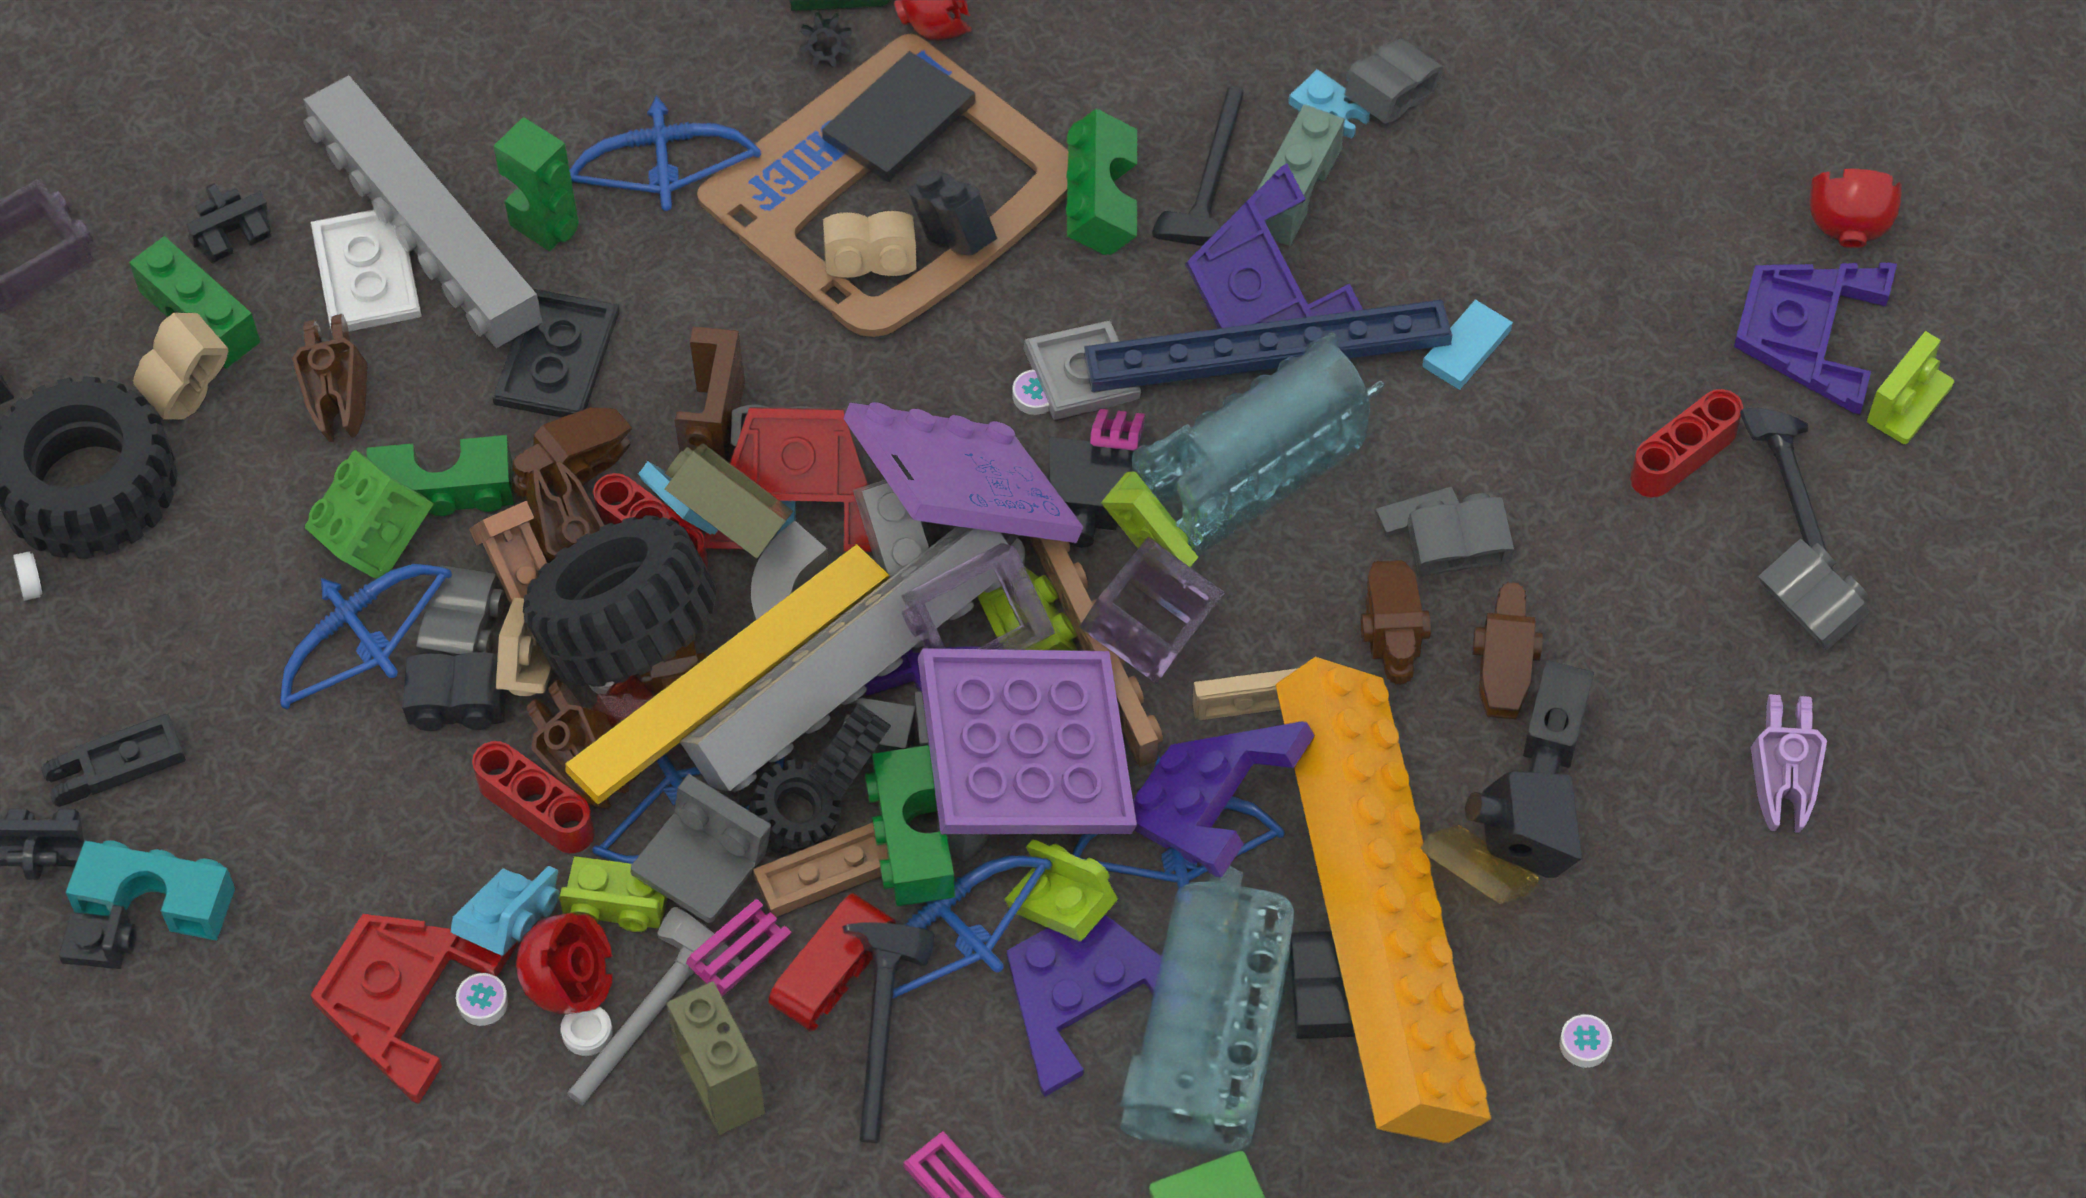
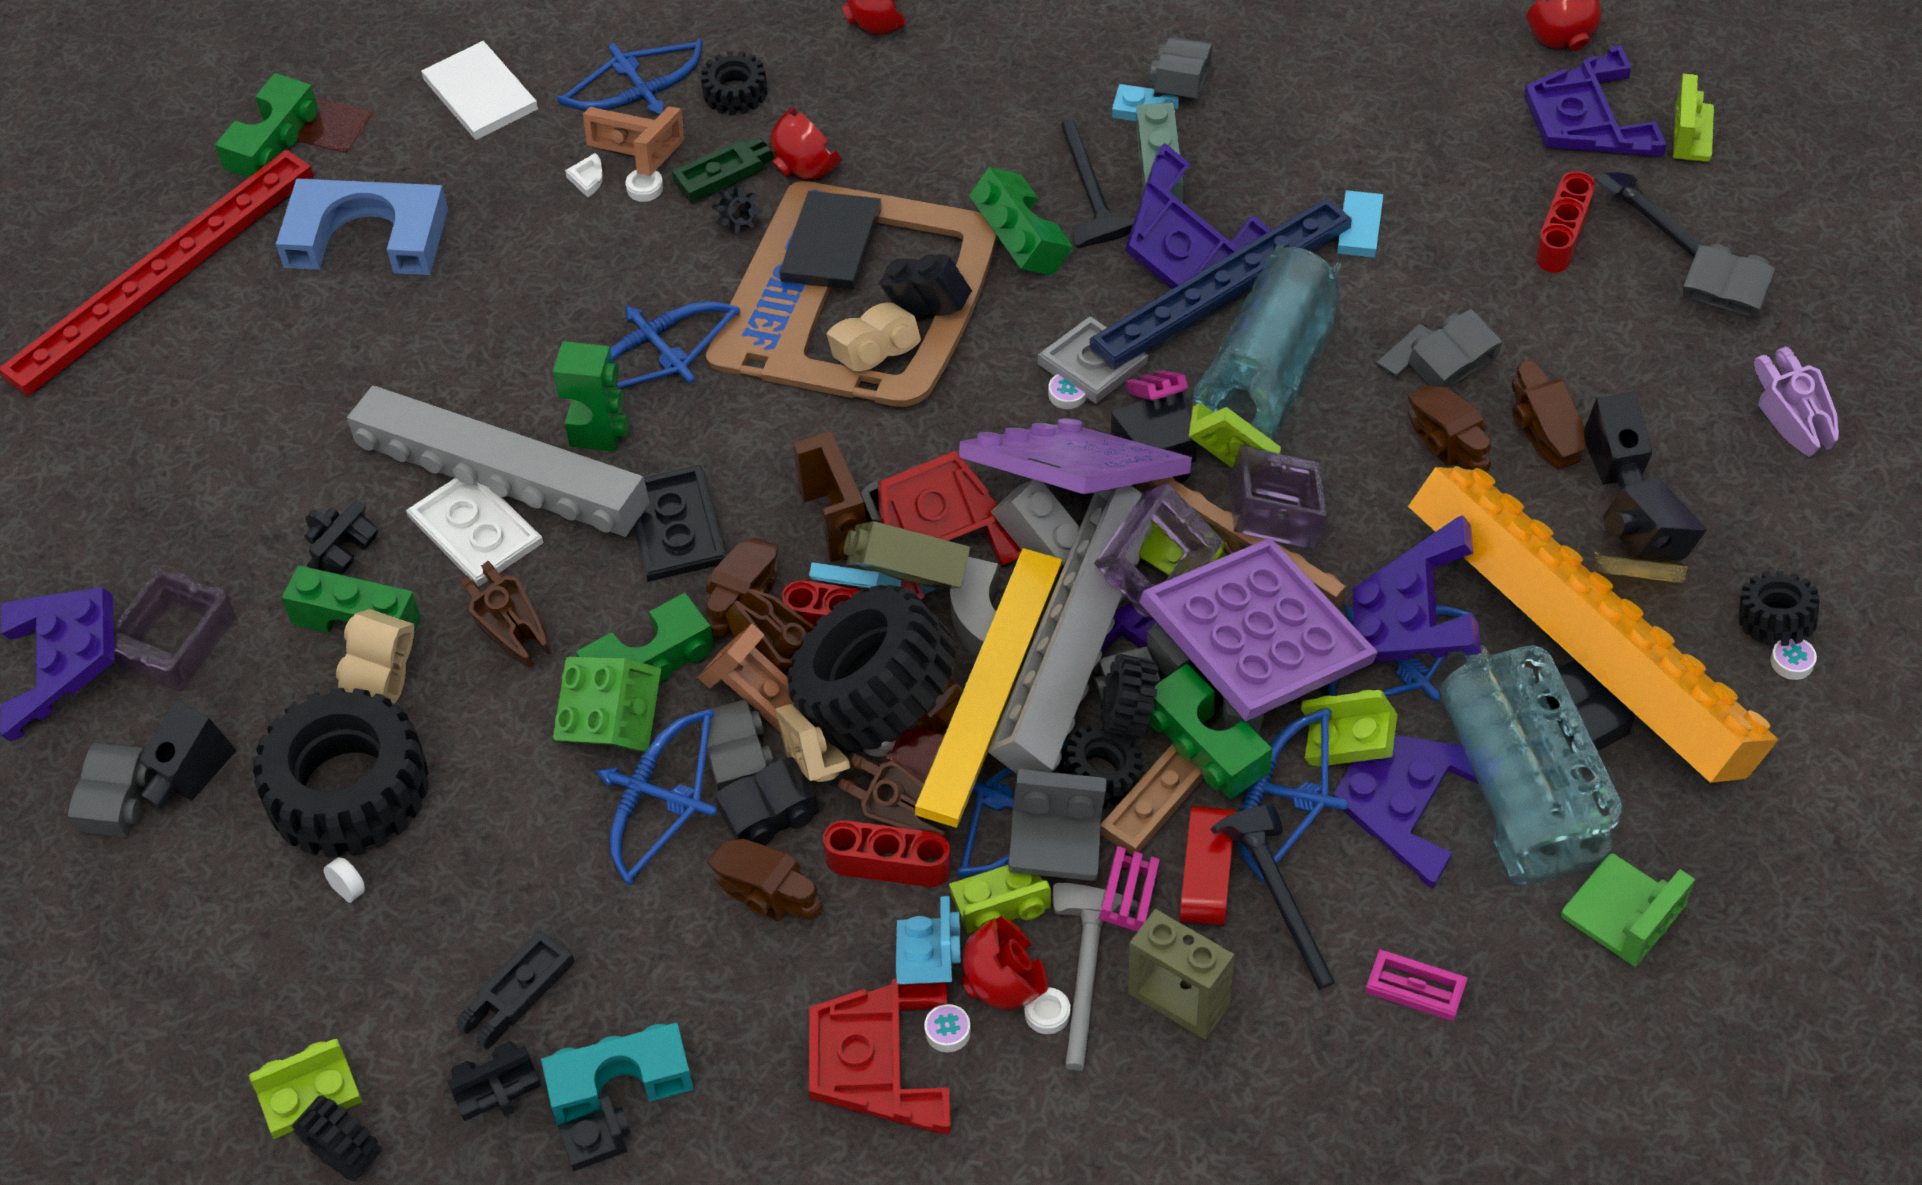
camera: 25 degrees left, 5 degrees down
(401, 767) = (764, 880): none -> reddish brown hinge
(1237, 695) = (1379, 529): tan tile -> none
(1596, 1000) = (1793, 623): none -> black tyre

